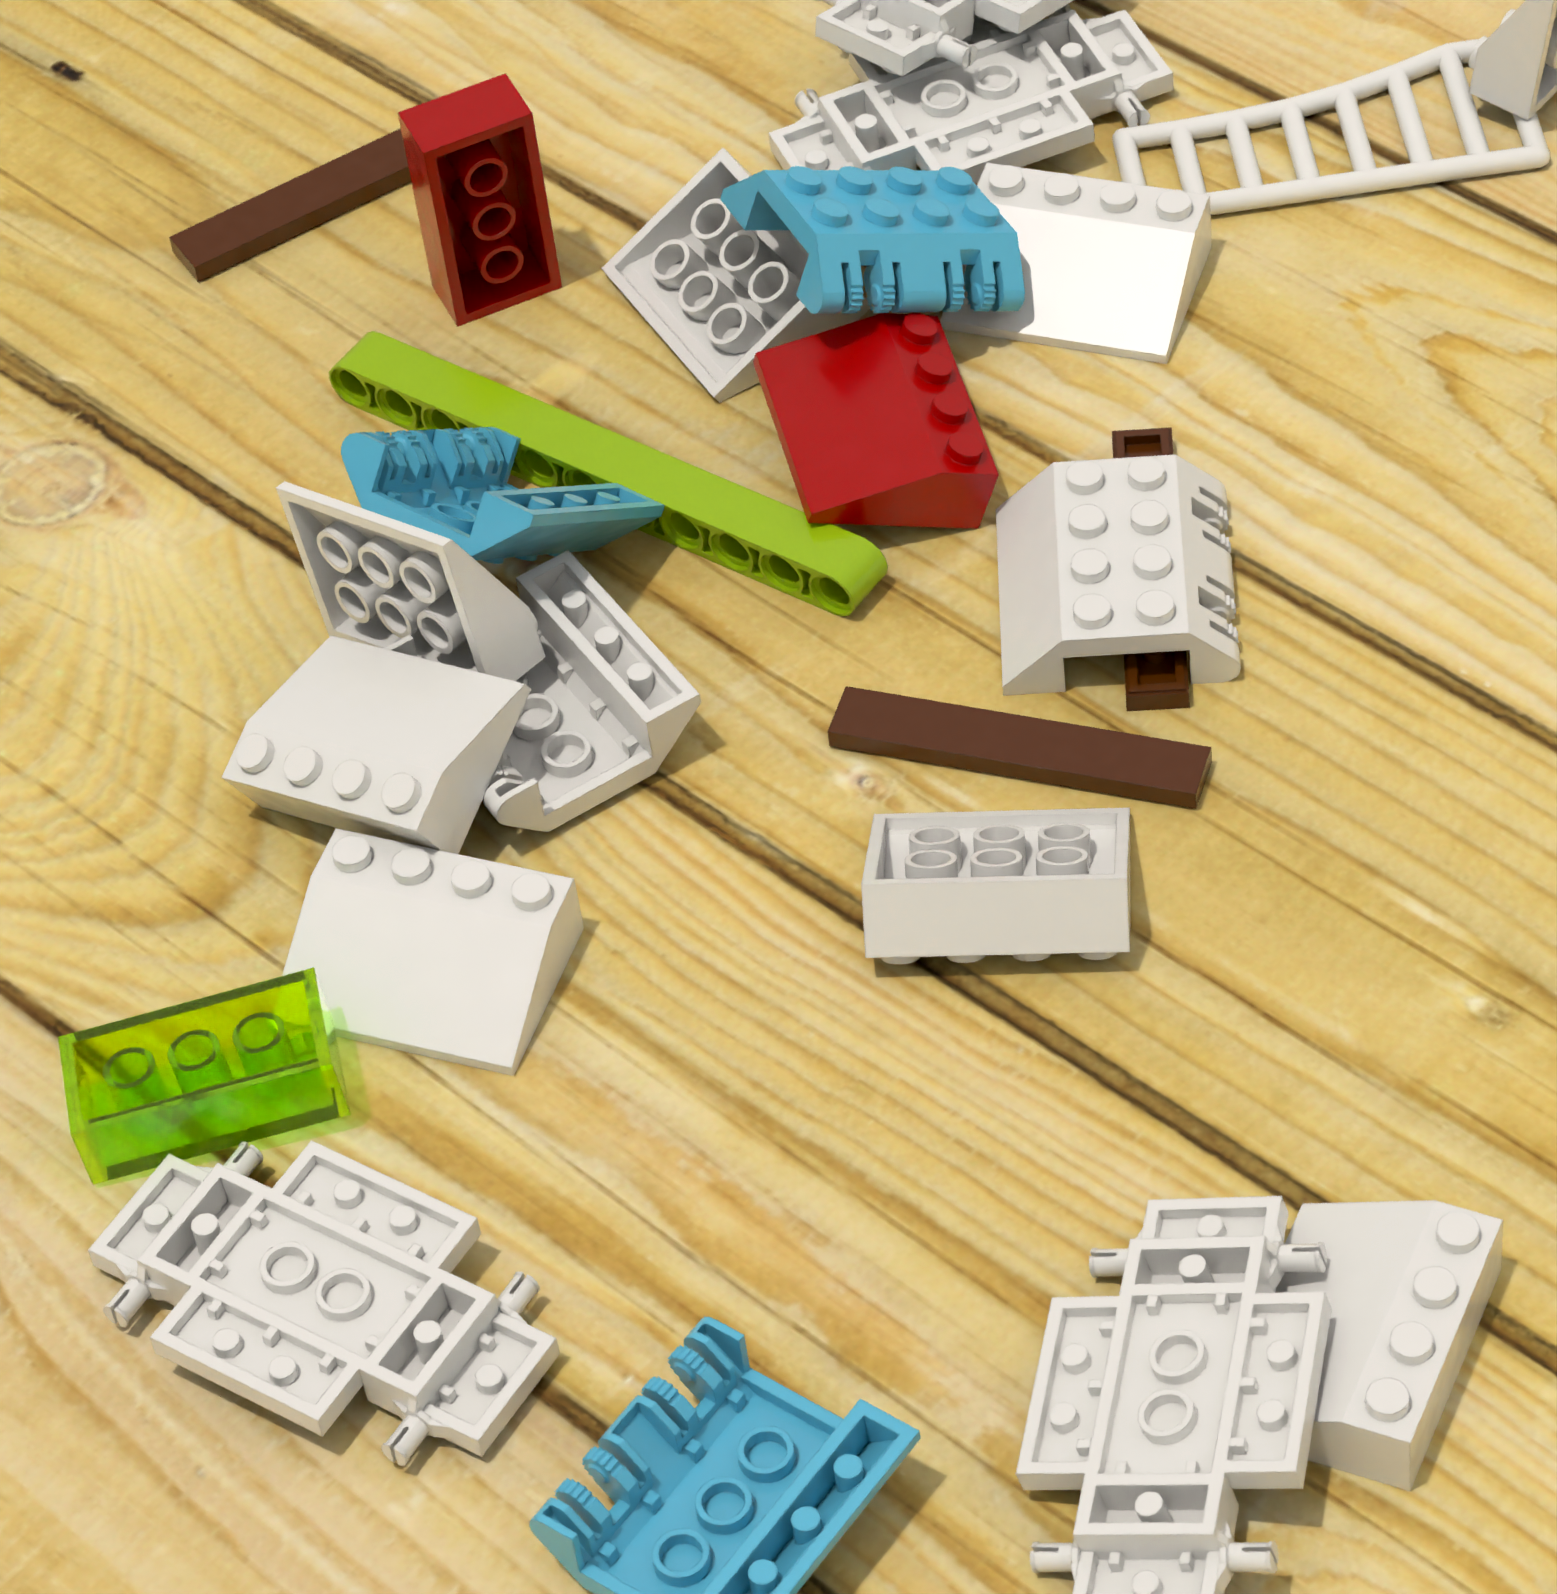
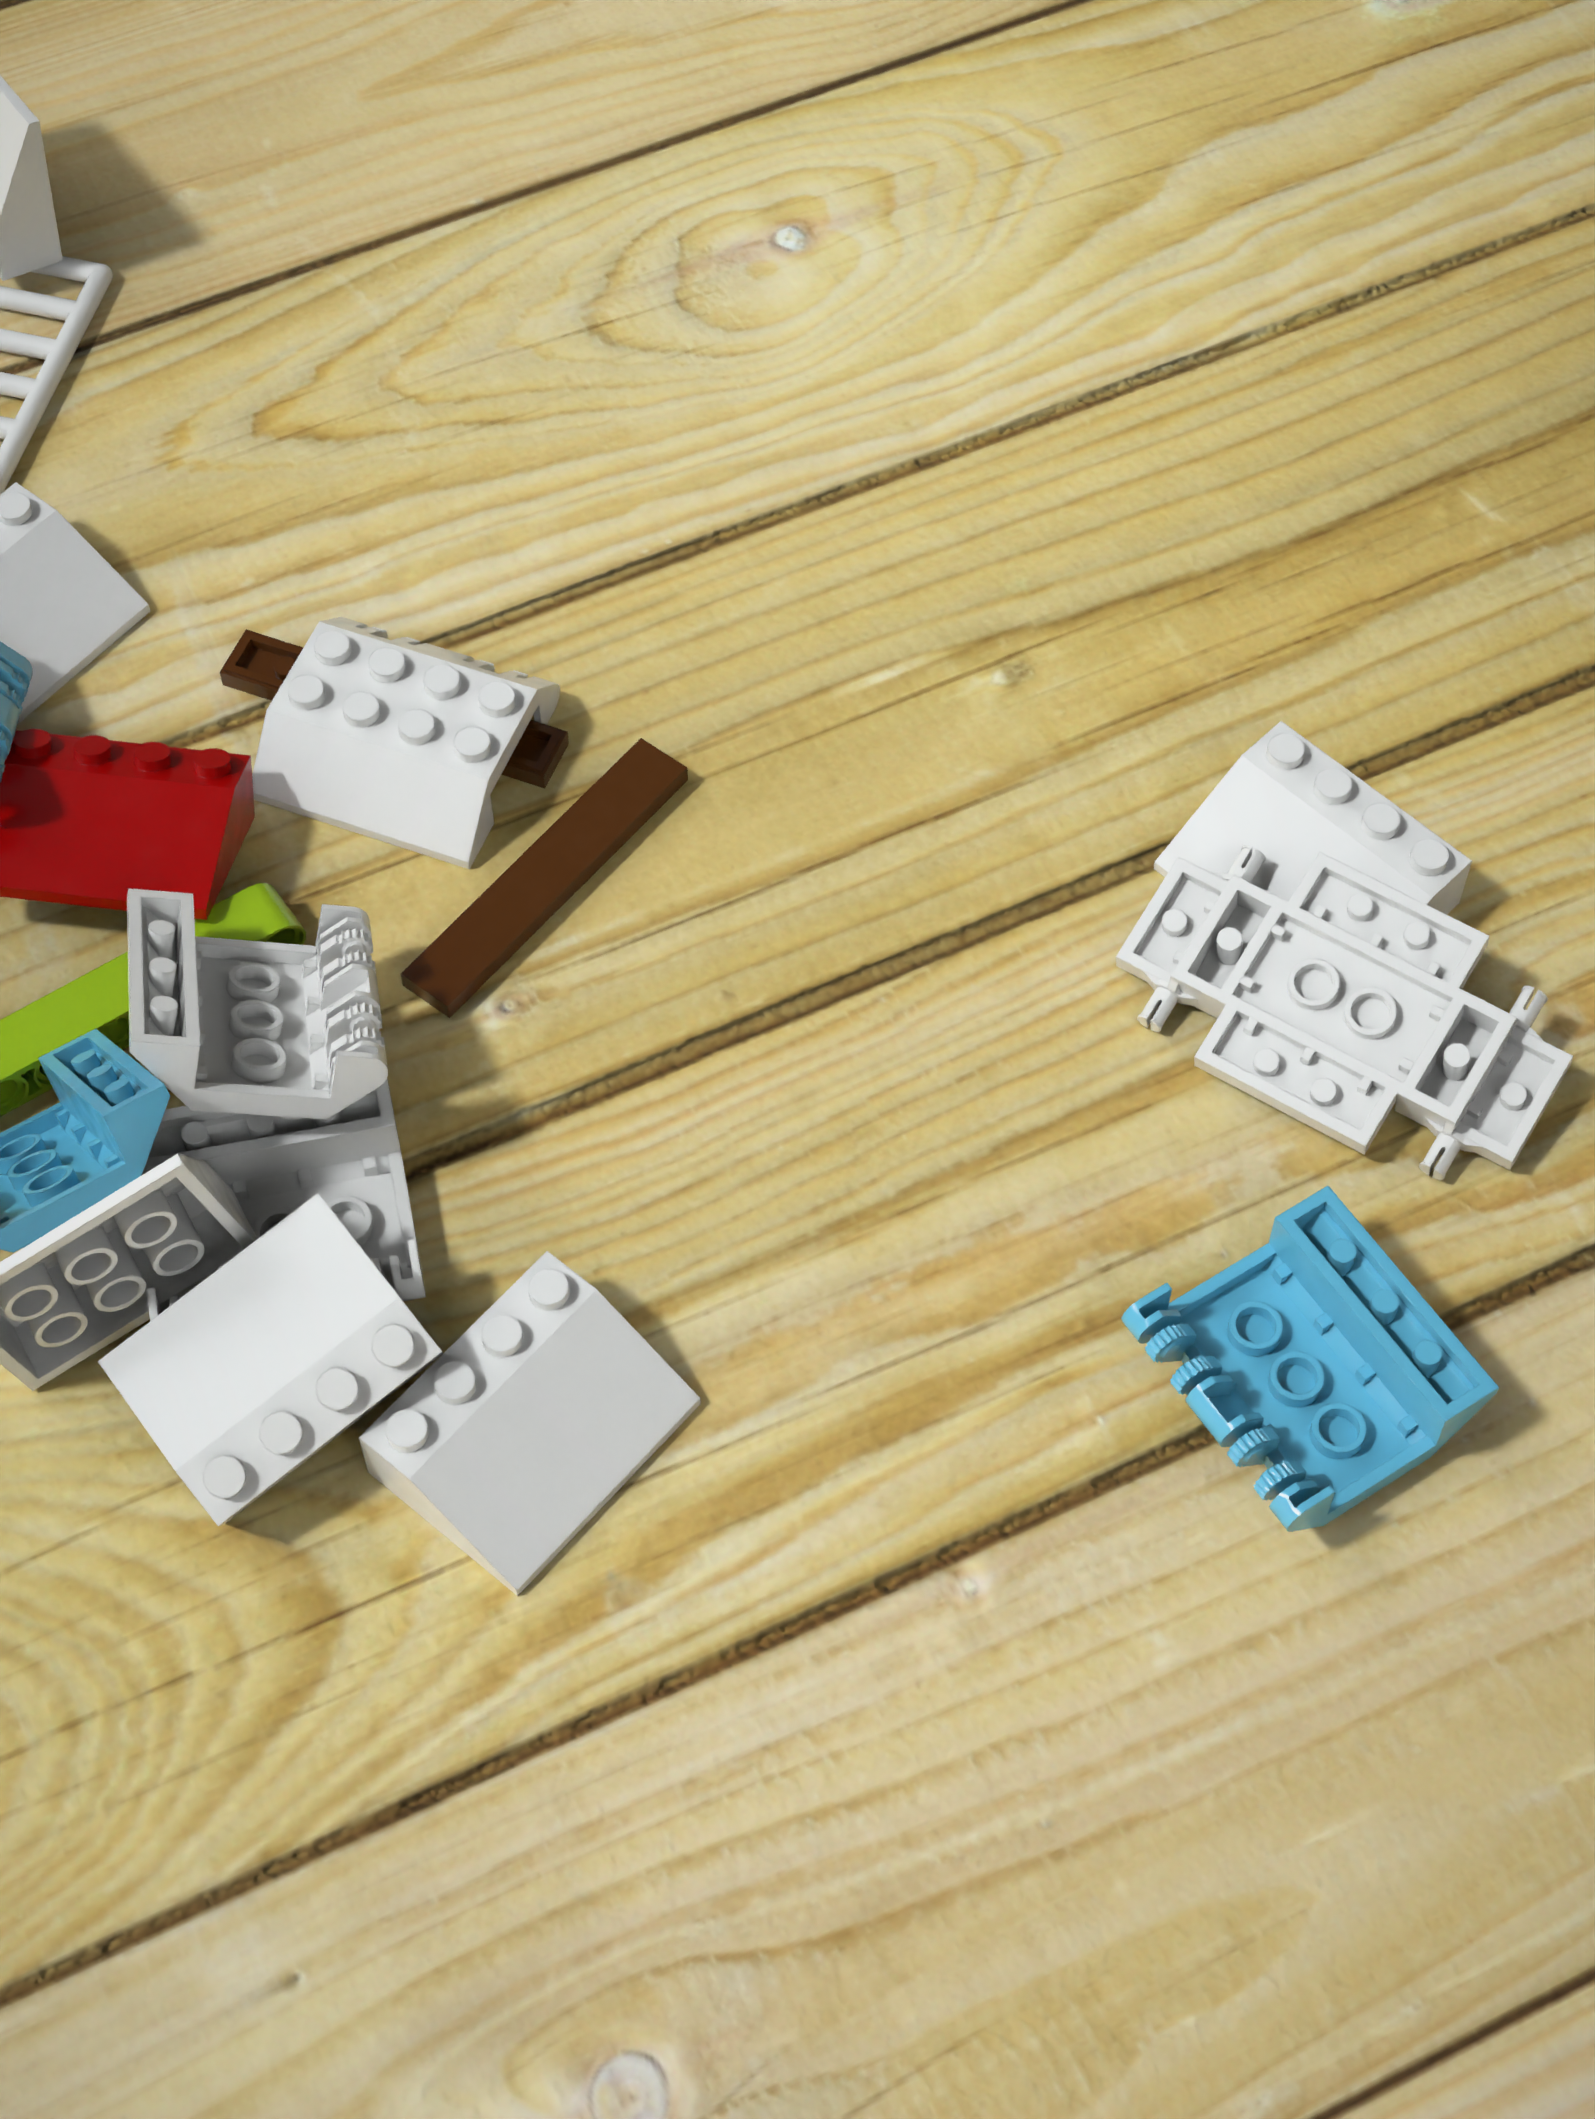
camera: 75 degrees left, 10 degrees up
(203, 1076) = (593, 1665): clear neon green brick -> none
(325, 1292) = (906, 1644): white piece -> none
(685, 556) = (254, 1020): none -> white slope
(997, 885) = (706, 938): white slope -> none

